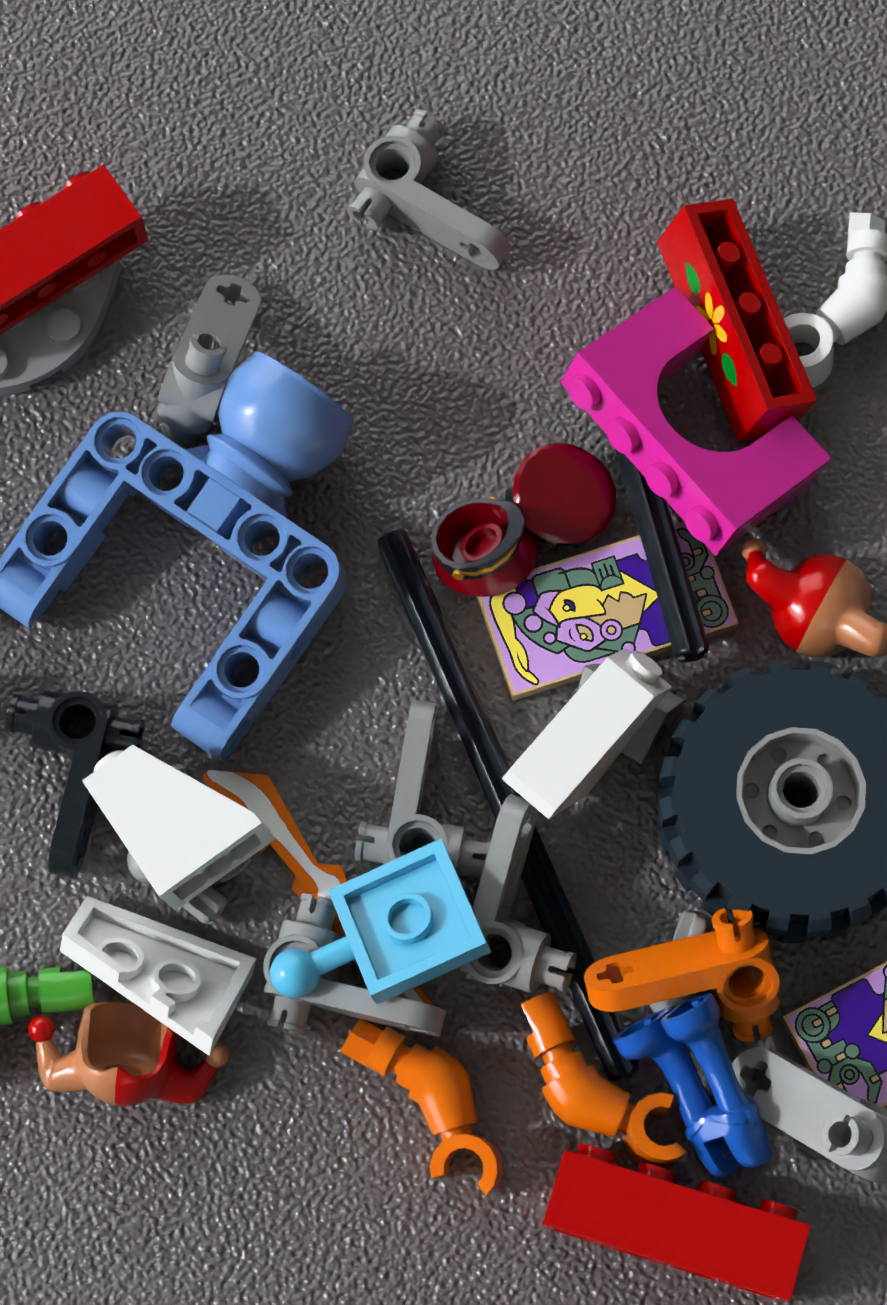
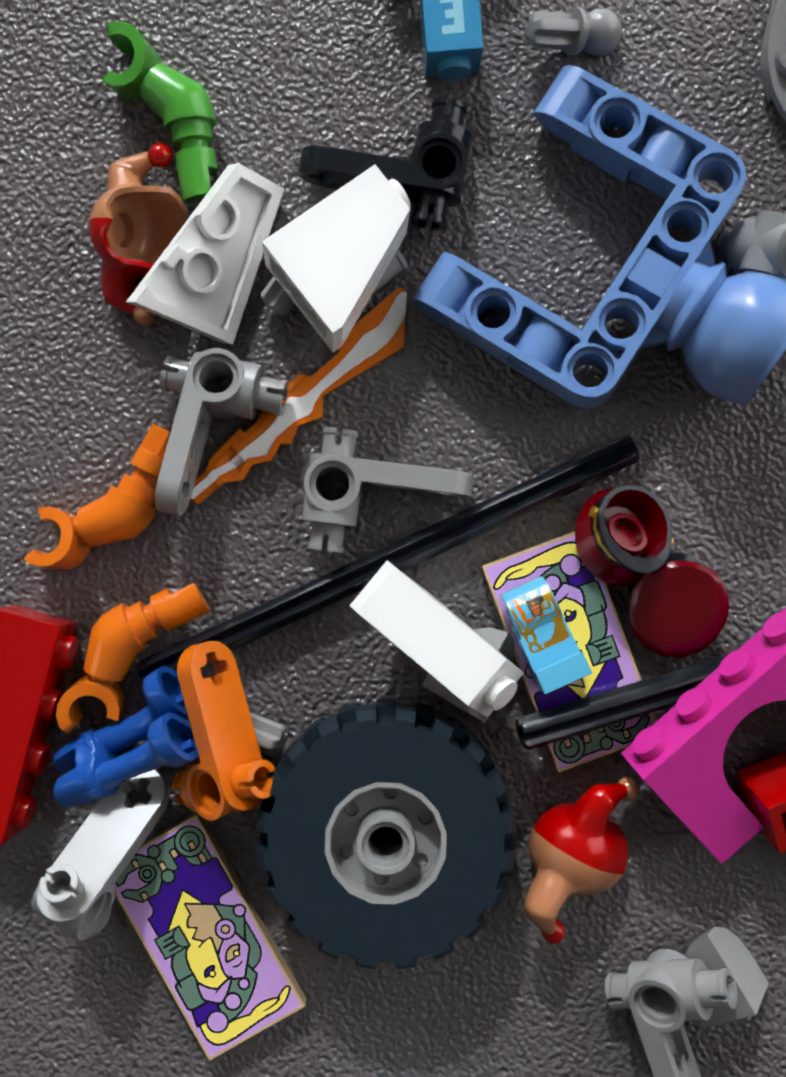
camera: 90 degrees right, 15 degrees up
(399, 925) = (247, 470): medium azure plate -> none
(532, 956) = (267, 555): light grey piece -> none
(588, 630) = (544, 636): none -> medium azure leg

